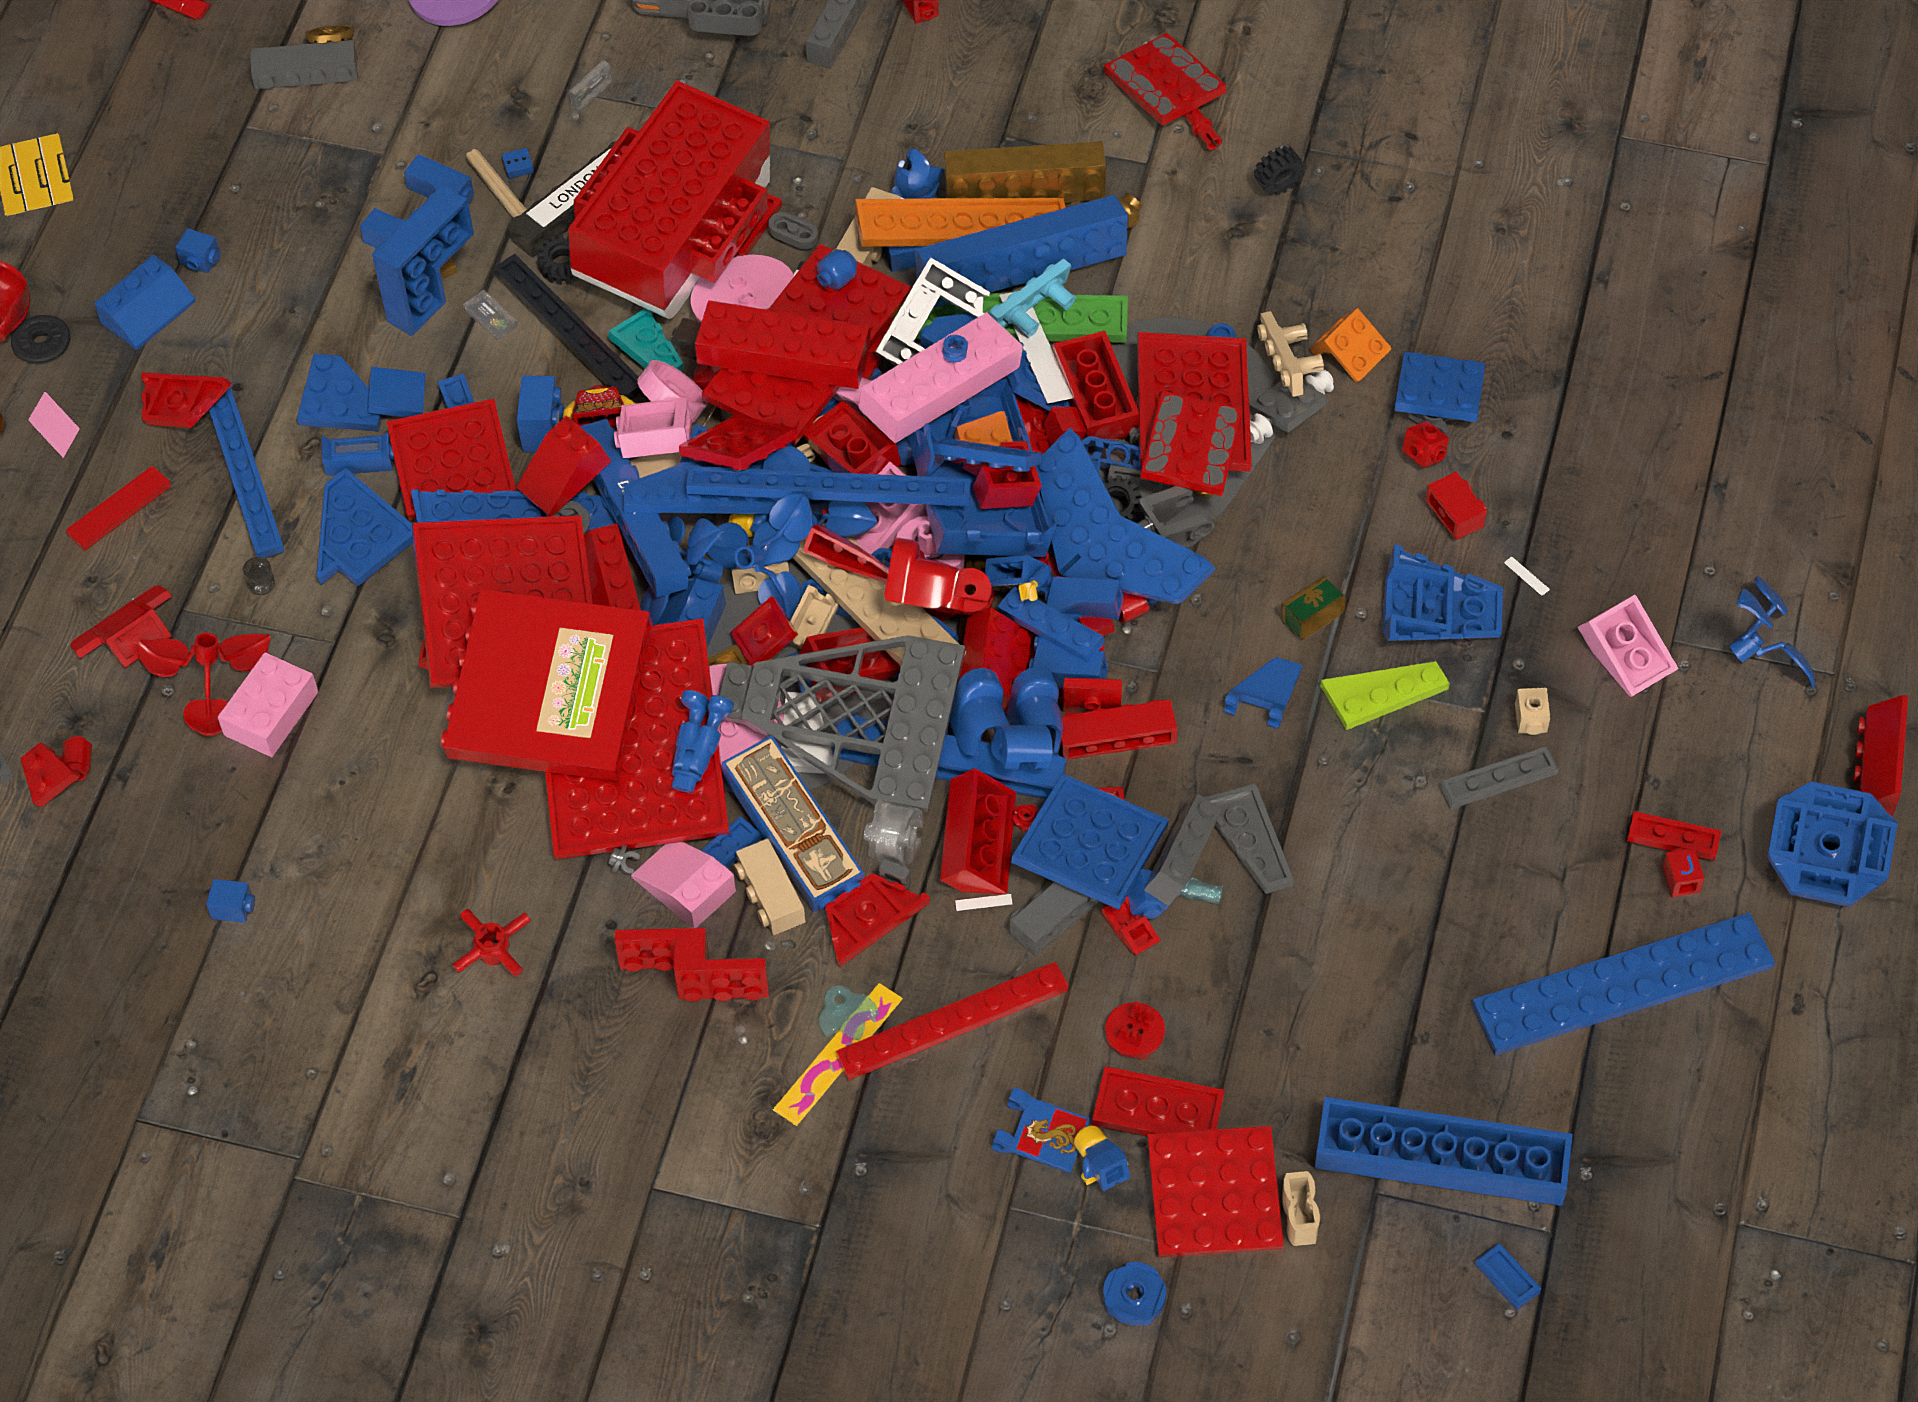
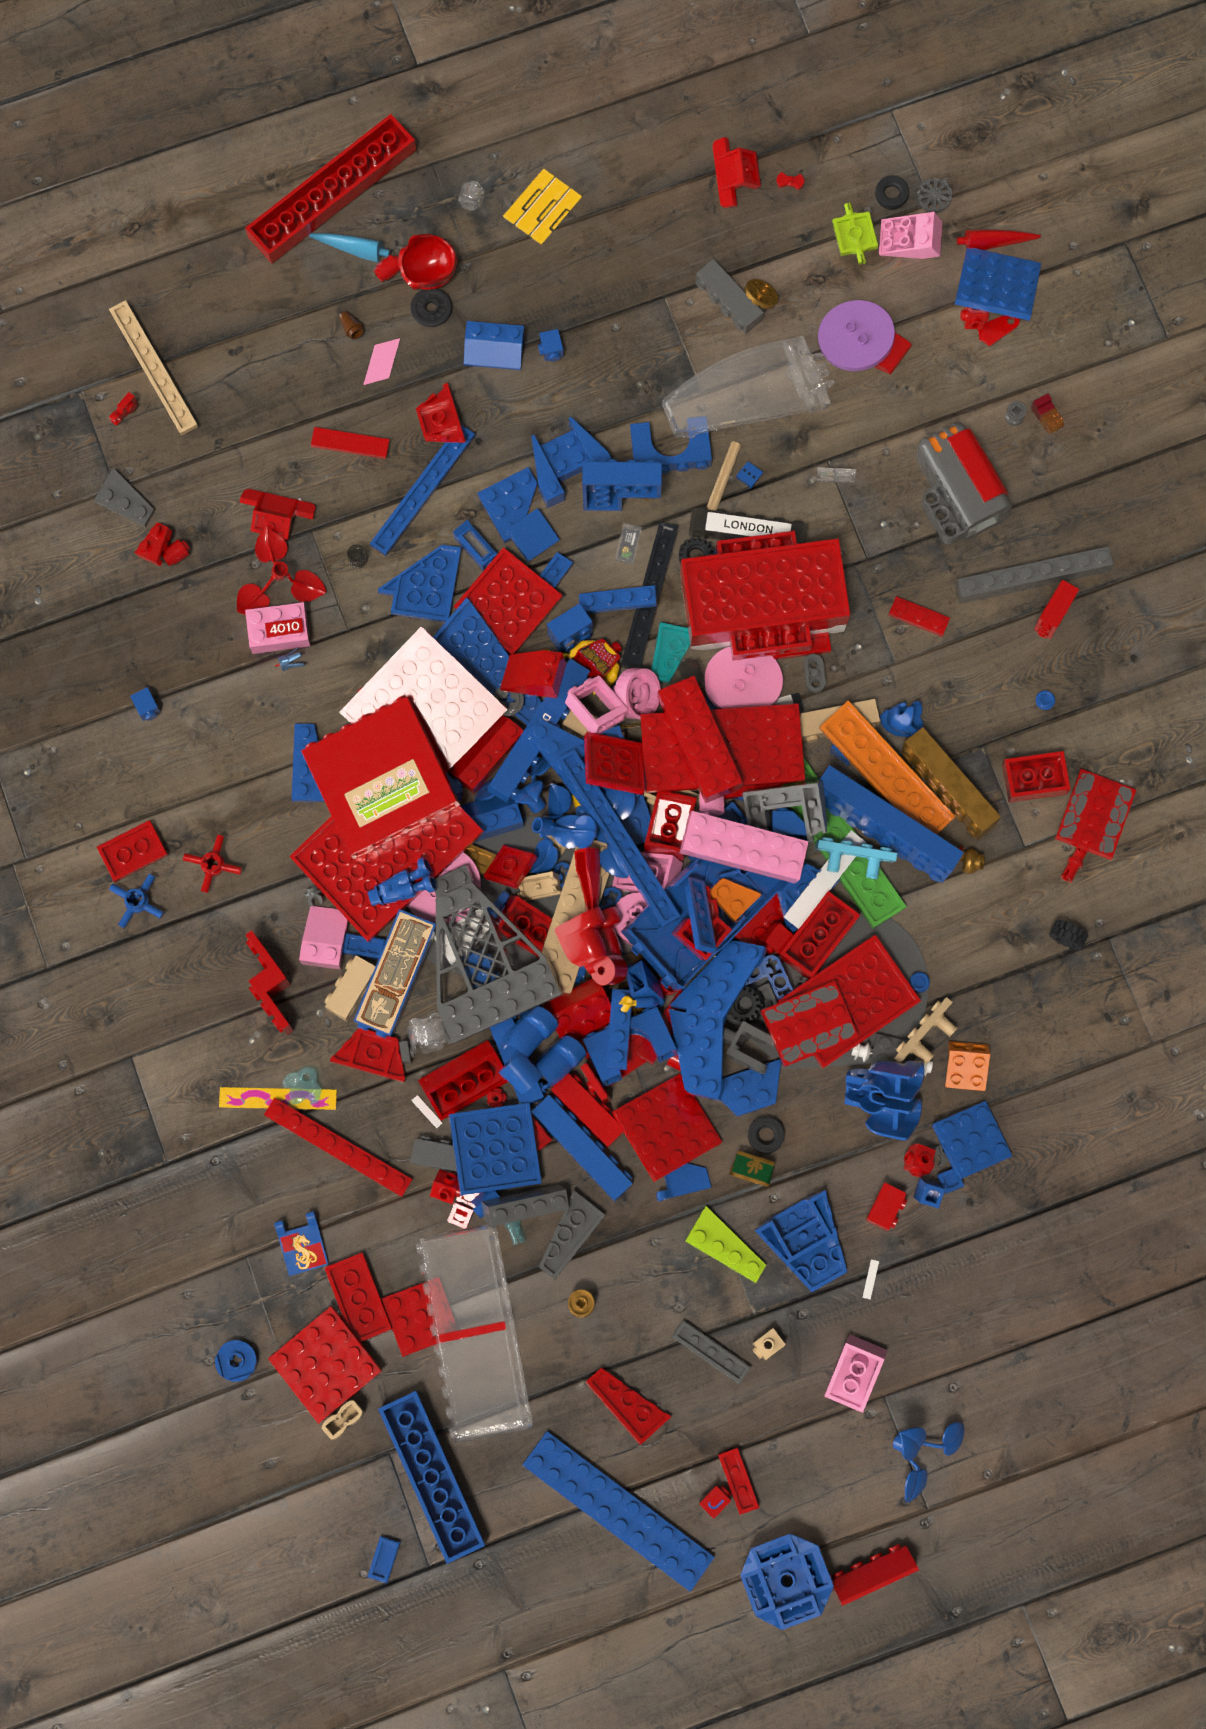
camera: 55 degrees right, 20 degrees up
(277, 686) = (284, 627): none -> red sticker
(314, 724) = (285, 660): none -> flat silver piece
(338, 313) = (563, 459): none -> blue wedge
(397, 1026) = (132, 851): none -> red plate
(423, 98) = (750, 389): none -> clear windscreen
(467, 1065) = (136, 893): none -> blue bar
(472, 784) = (303, 783): none -> blue wing
(549, 349) = (619, 599): none -> blue plate
(813, 108) = (919, 616): none -> red plate
(836, 269) = (779, 730): blue head -> none
(953, 354) = (753, 846): blue bush -> none
(1002, 53) = (1045, 700): none -> blue plate
(1080, 101) = (1036, 776): none -> red brick
(1094, 926) = (445, 1187): none -> red brick
(1101, 1158) = (302, 1290): blue piece -> none
(1128, 1041) = (389, 1254): red plate -> none
(1160, 760) = (582, 1148): none -> blue brick
(1200, 661) = (666, 1128): none -> red plate
(1229, 555) = (751, 1090): none -> blue wing
(1233, 1053) = (410, 1319): none -> red plate
(1287, 561) = (766, 1122): none -> black tyre
(1301, 993) = (474, 1333): none -> clear windscreen
(1344, 868) = (581, 1303): none -> pearl gold wheel
(1347, 444) = (899, 1081): none -> blue piece
(1470, 434) = (949, 1181): none -> blue plate
(1471, 455) = (929, 1193): none -> blue brick
(1516, 895) = (629, 1408): none -> red wing

